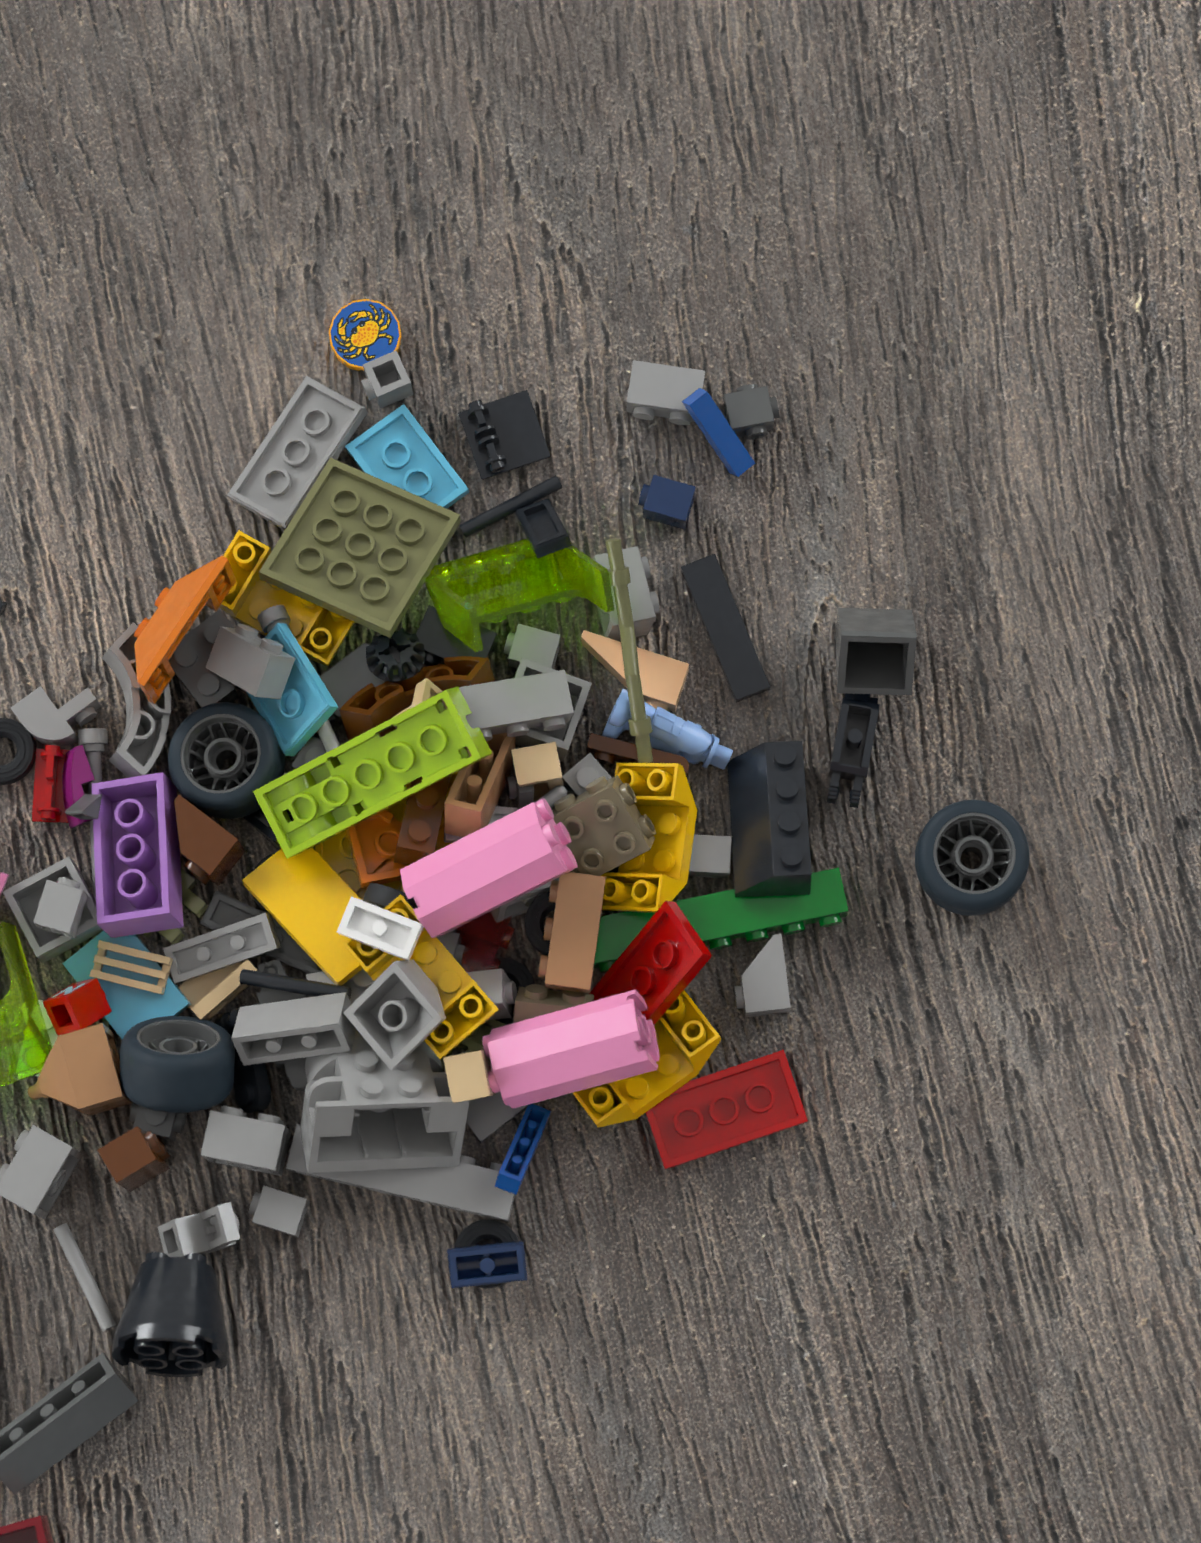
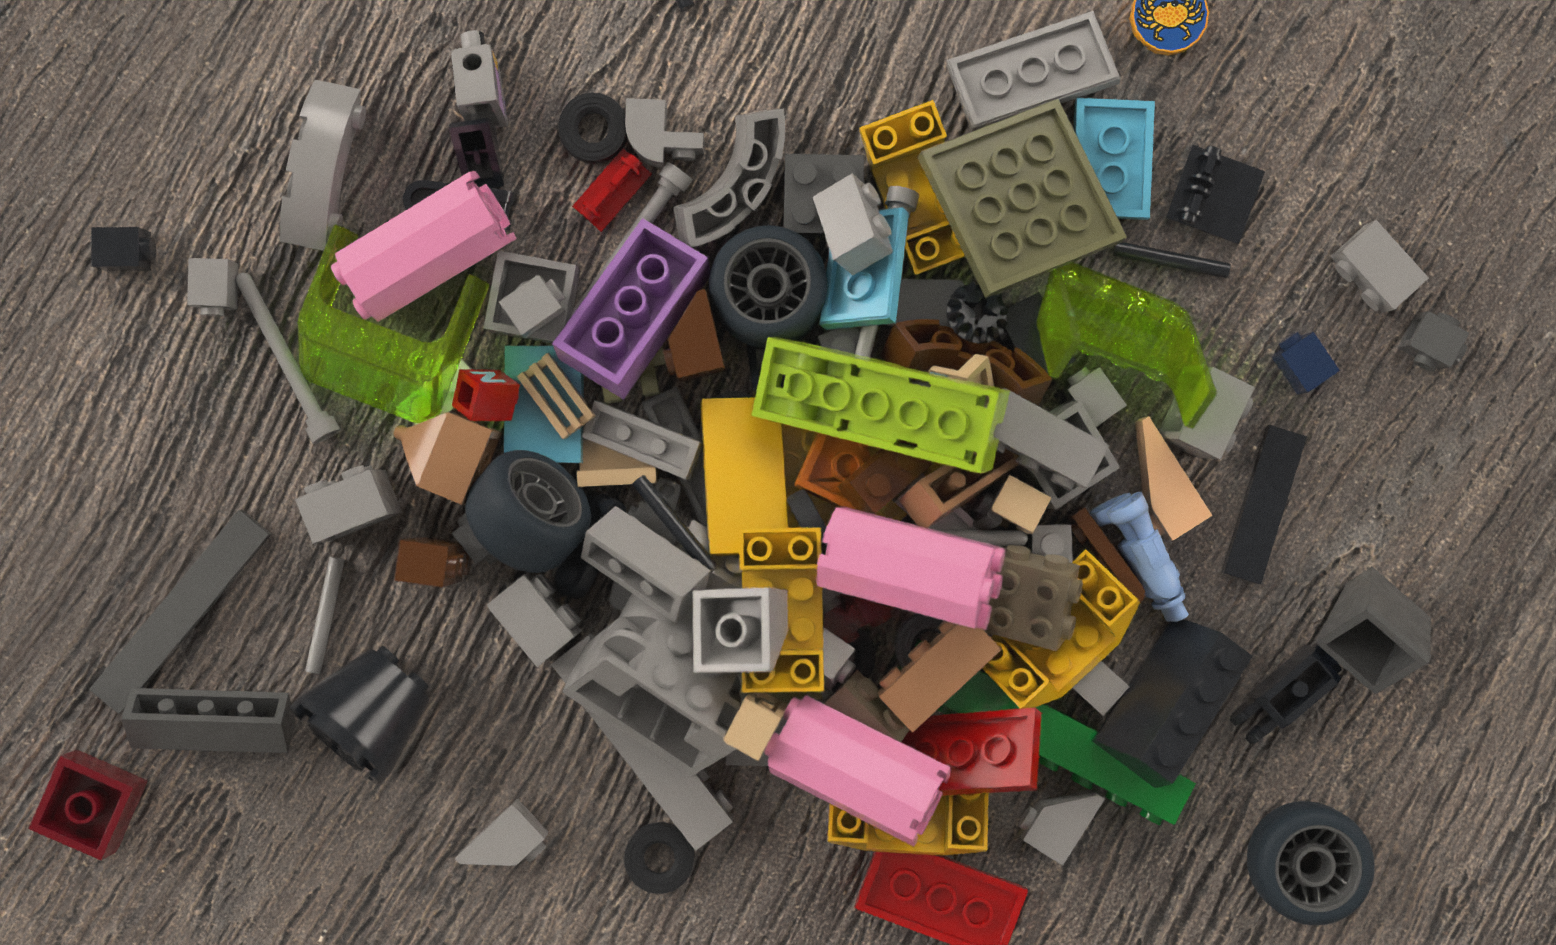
camera: 35 degrees right, 10 degrees up
(75, 775) = (636, 198): magenta slope -> none
(86, 807) = (622, 235): dark grey piece -> none
(172, 620) = (815, 138): orange slope -> none
(200, 1232) = (441, 658): light grey brick -> none
(279, 1211) = (519, 690): light grey brick -> none
(358, 1332) = (506, 839): none -> light grey slope
(380, 928) = (779, 547): white plate -> none
(386, 380) = (1157, 69): light grey brick -> none
(487, 1264) = (650, 874): dark blue brick -> none
(522, 1148) = (750, 806): blue piece -> none
(543, 528) = (1184, 302): black tile -> none
(639, 723) = (1134, 535): olive bar -> none
(718, 432) = (1396, 339): blue piece -> none

